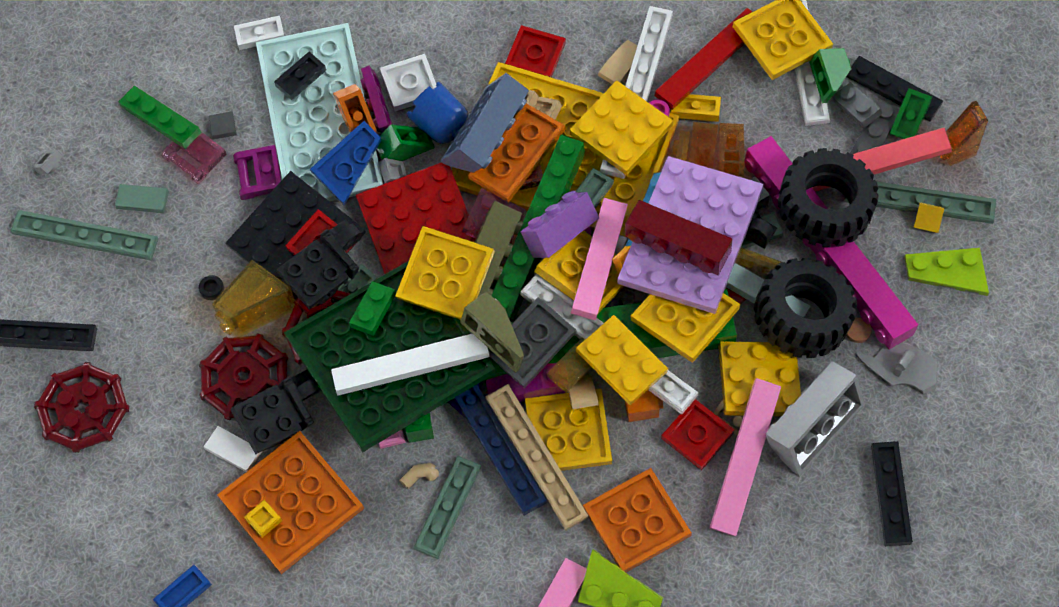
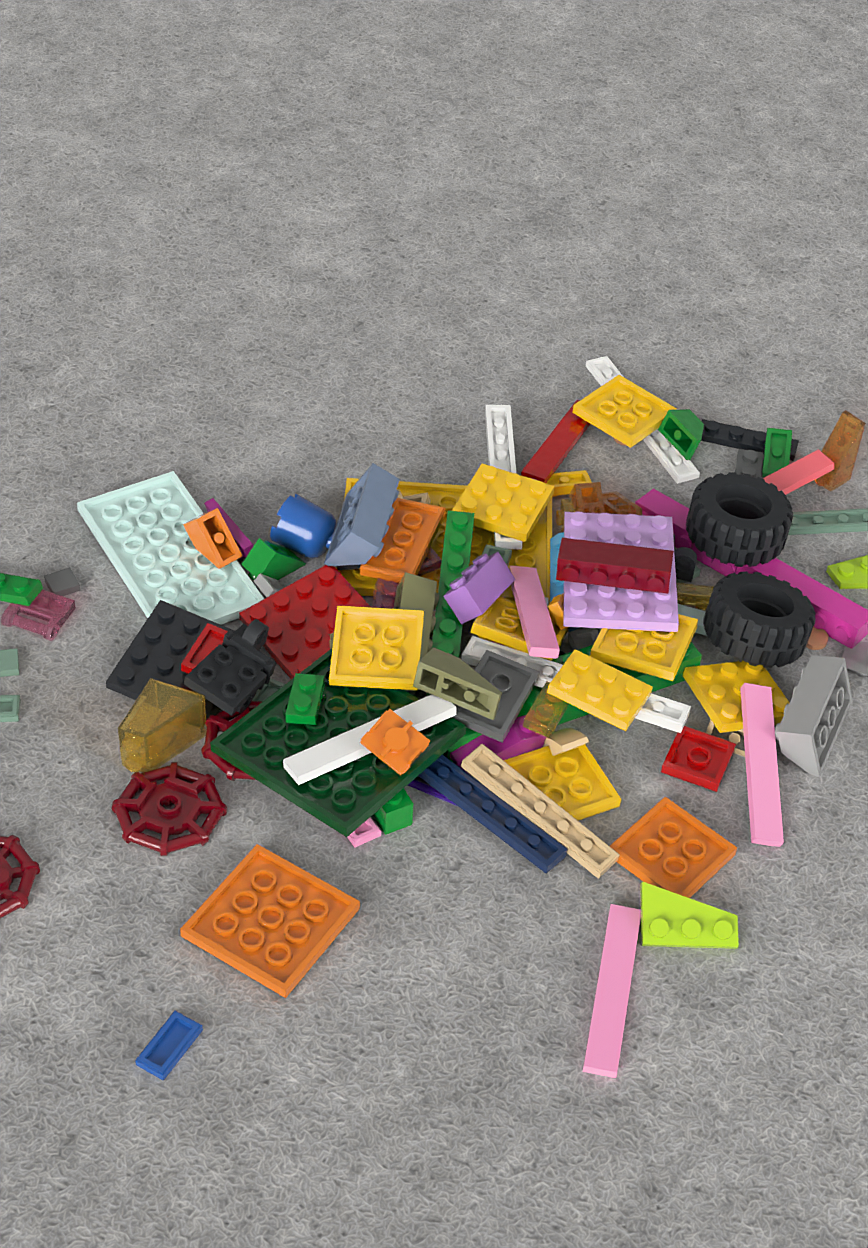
camera: 25 degrees left, 20 degrees down
(211, 287) = (100, 732): black tile -> none
(231, 449) = (180, 882): white tile -> none
(260, 30) = (66, 498): white plate -> none
(263, 518) = (246, 939): yellow tile -> none
(266, 171) = (126, 611): magenta plate -> none
(276, 412) = (227, 826): black plate -> none
(300, 75) = (139, 519): black plate -> none
(347, 161) = (219, 583): blue wing -> none
(407, 80) = (254, 510): white plate -> none
(418, 471) = (409, 857): tan arm -> none
(423, 377) = (395, 741): none -> orange piece
(447, 507) = (455, 887): sand green tile -> none
(536, 51) = (388, 458): red plate -> none
(619, 63) = (471, 459): tan slope -> none
(644, 408) = (628, 744): orange brick -> none
(857, 105) = (721, 455): dark grey plate -> none
(929, 217) = (835, 531): yellow tile -> none

